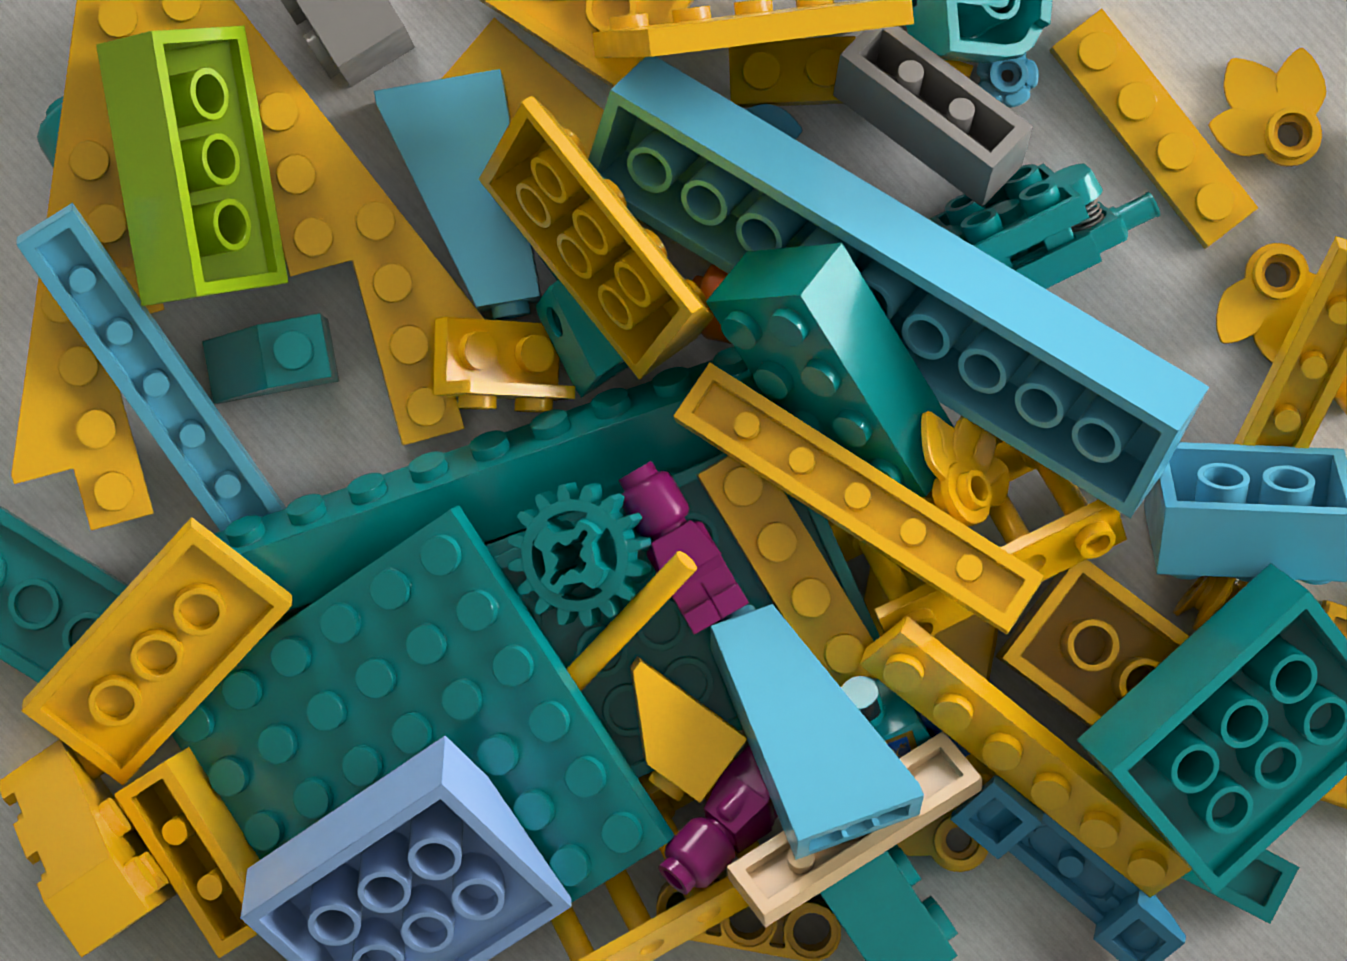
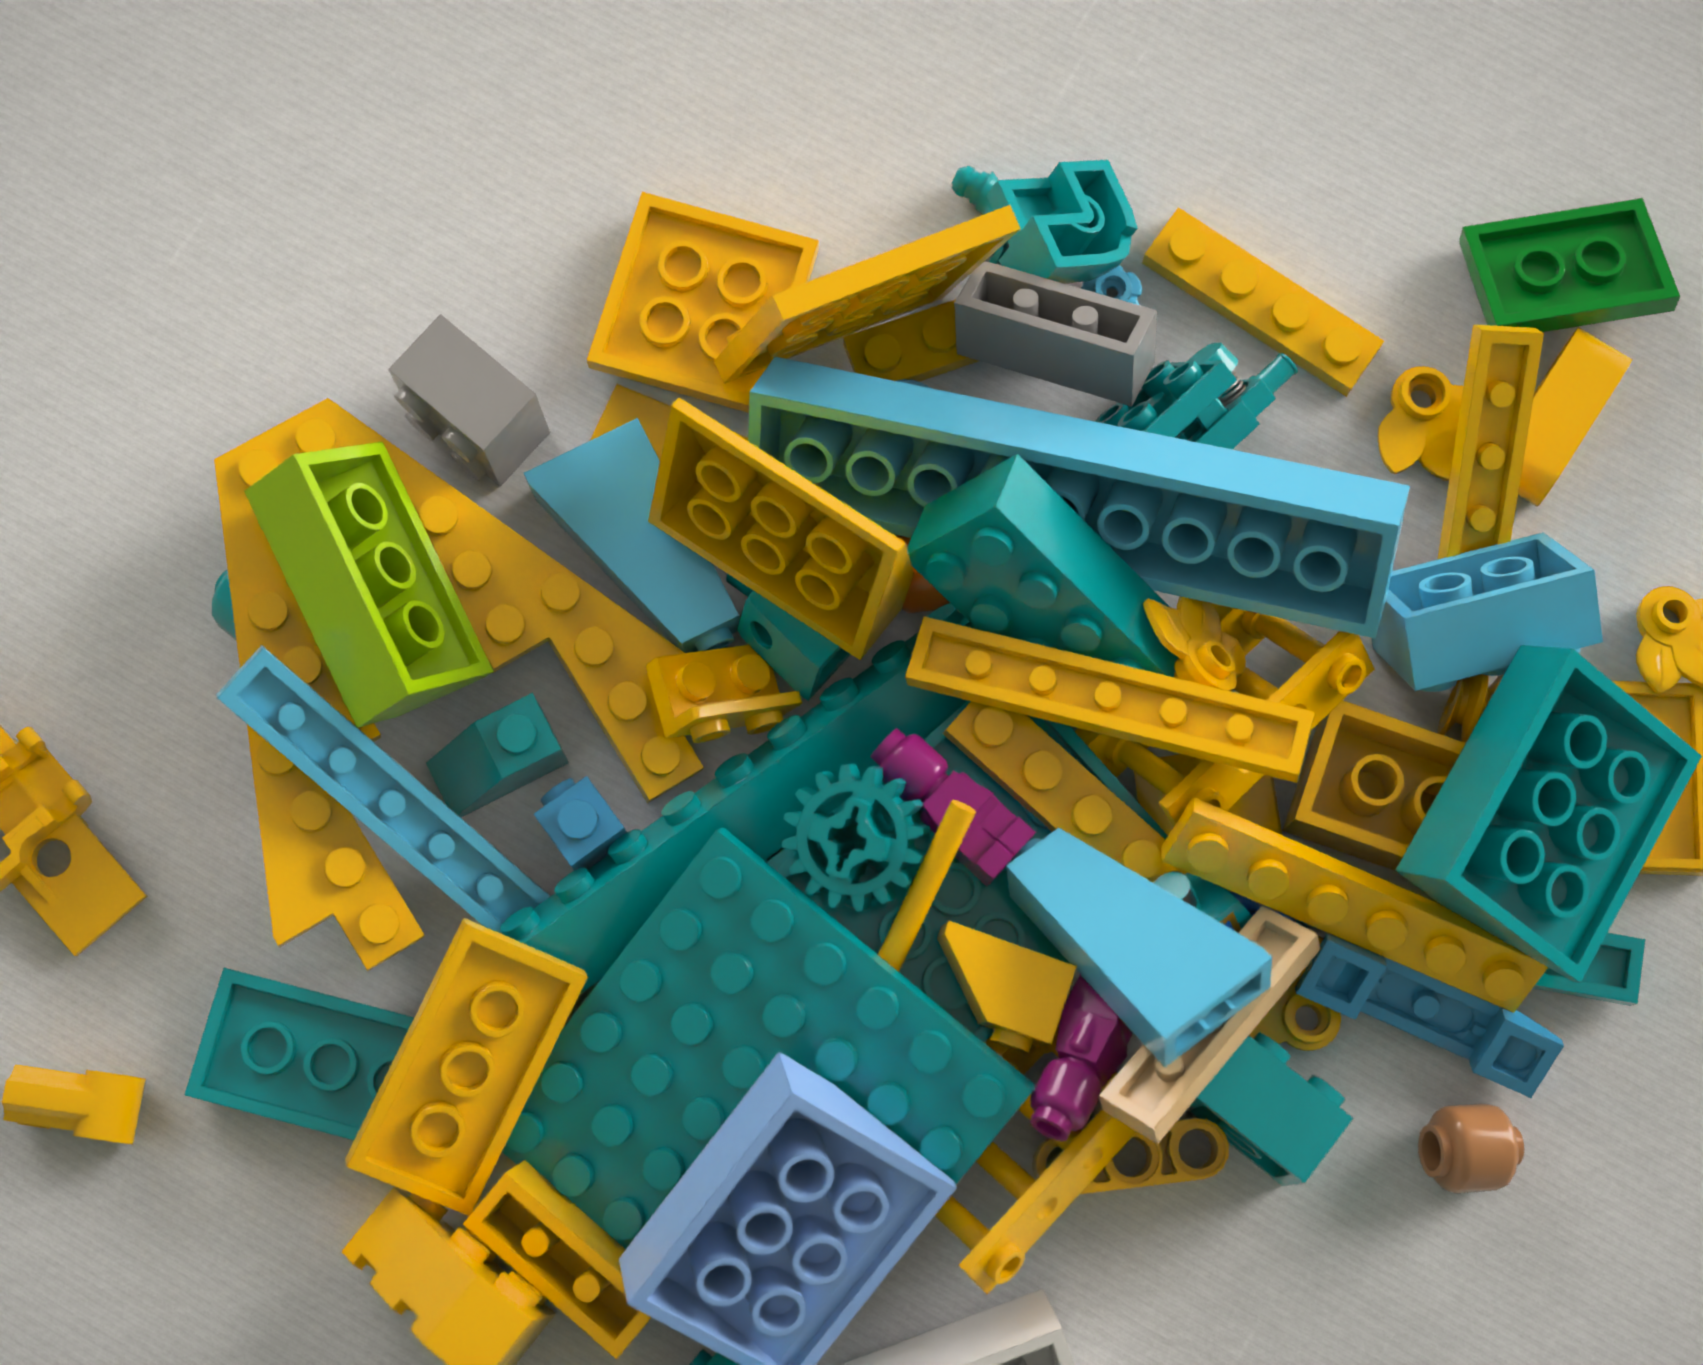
camera: 20 degrees left, 10 degrees down
(330, 449) = (579, 822): none -> dark azure brick
(1268, 100) = (1358, 246): yellow plate -> none

